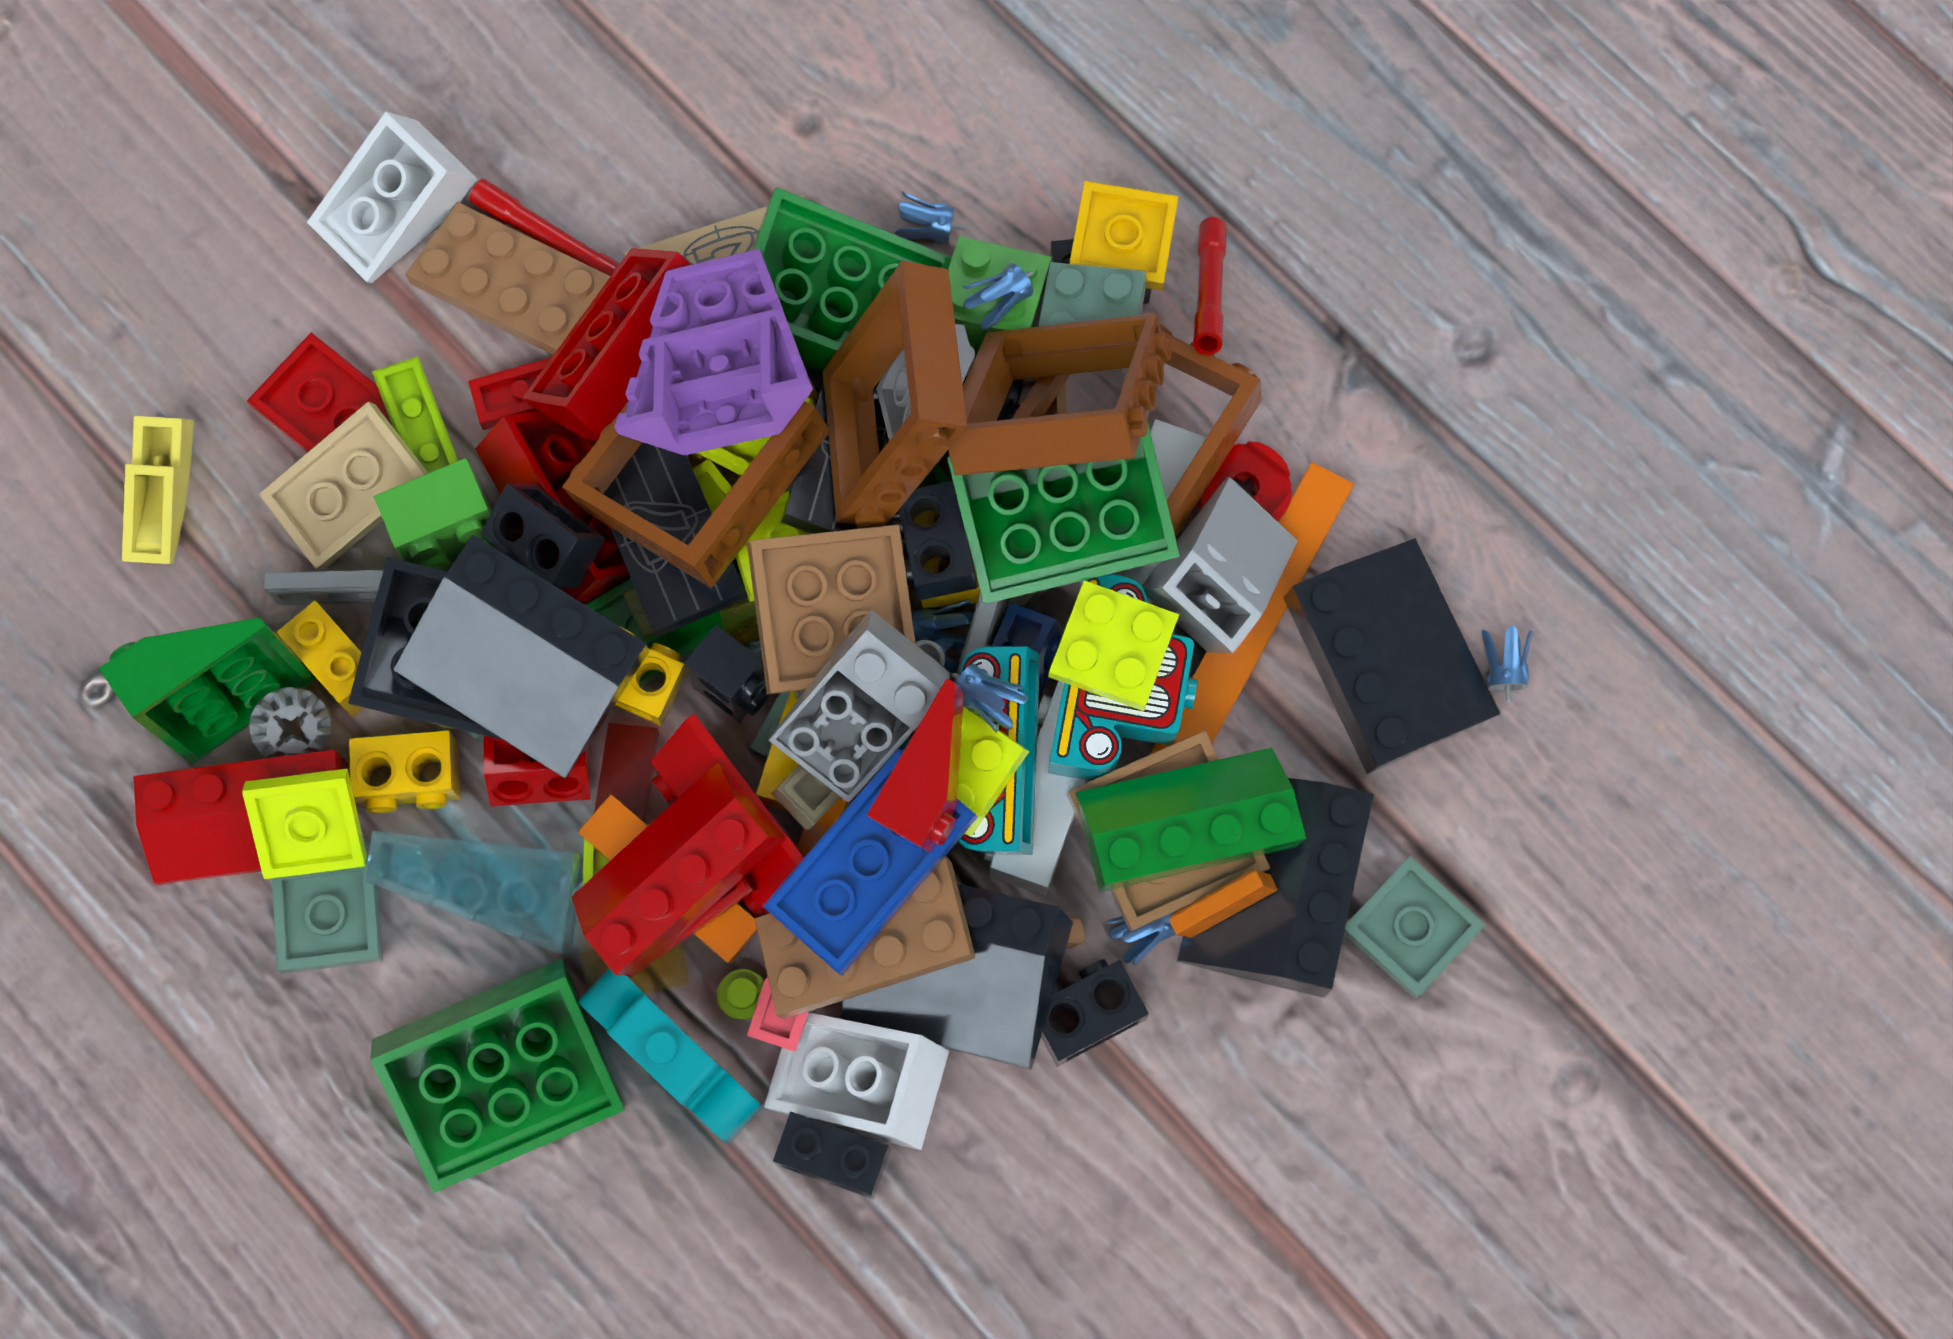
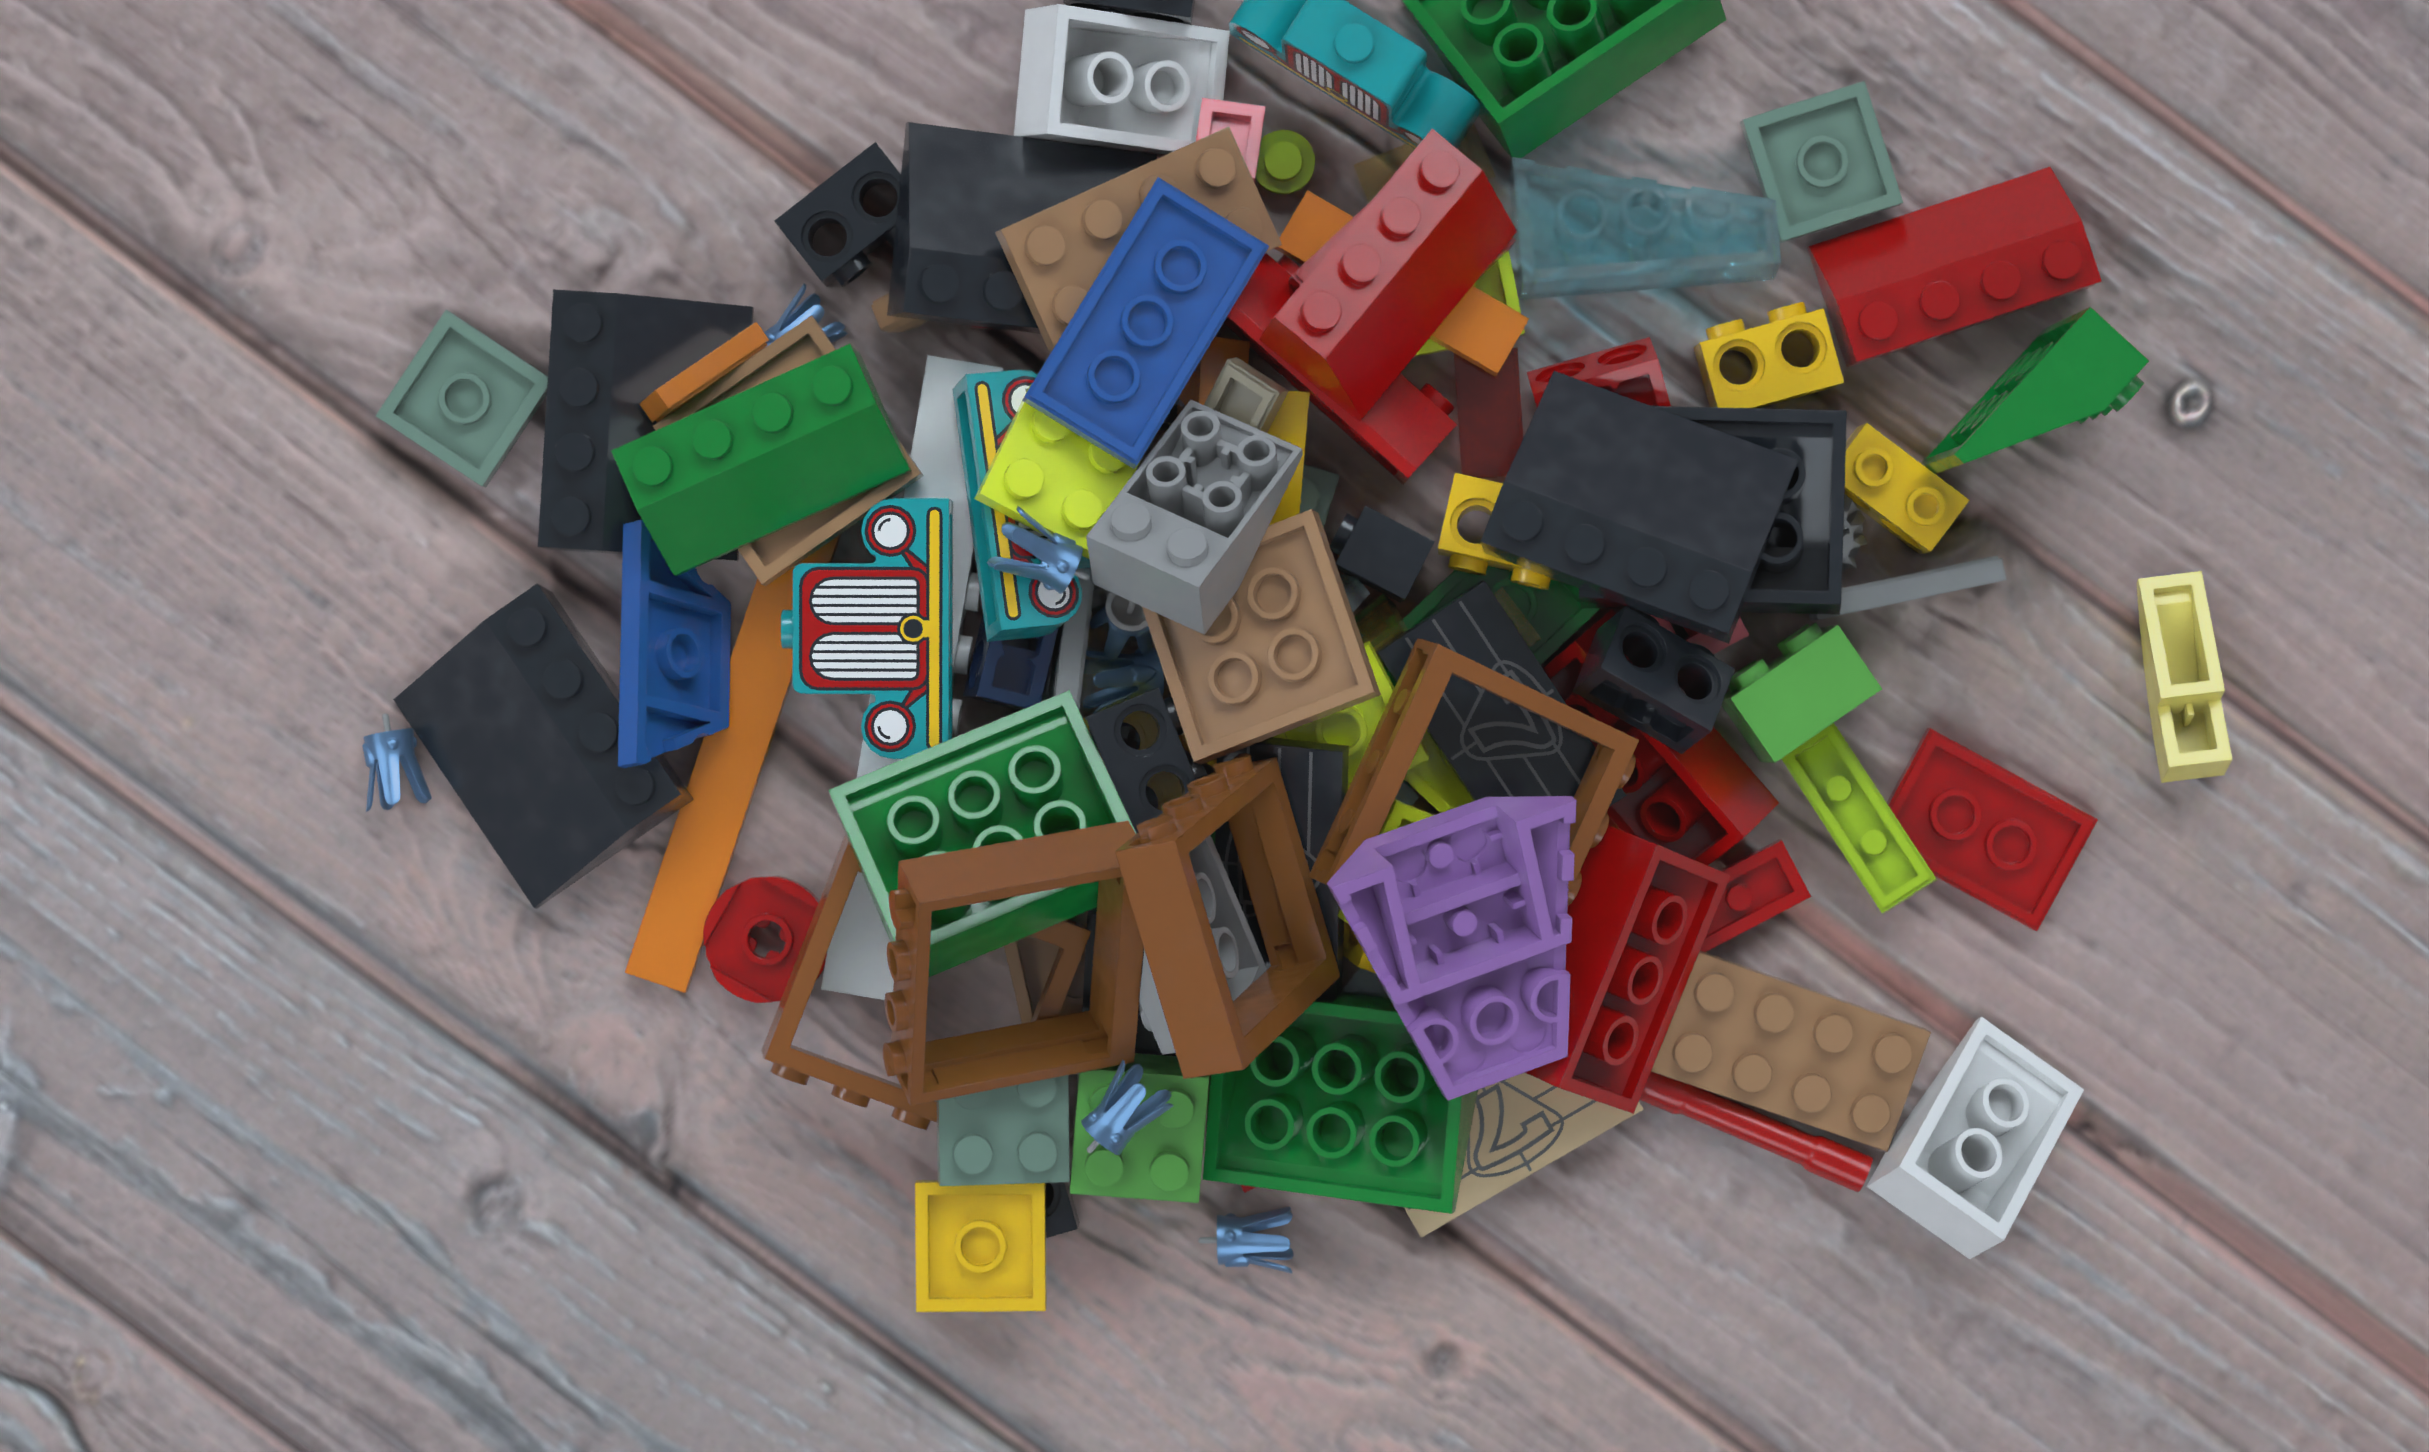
camera: 170 degrees right, 15 degrees up
(288, 704) = (1935, 415): light grey gear -> none
(305, 823) = (1868, 258): neon yellow plate -> none
(331, 490) = (1934, 719): tan plate -> none
(924, 783) = (1090, 418): red slope -> none
(1113, 645) = (893, 660): neon yellow plate -> none
(1209, 318) = (846, 1139): red piece -> none
(1224, 569) = (769, 809): light grey slope -> none
(1285, 690) = (669, 654): none -> blue wing

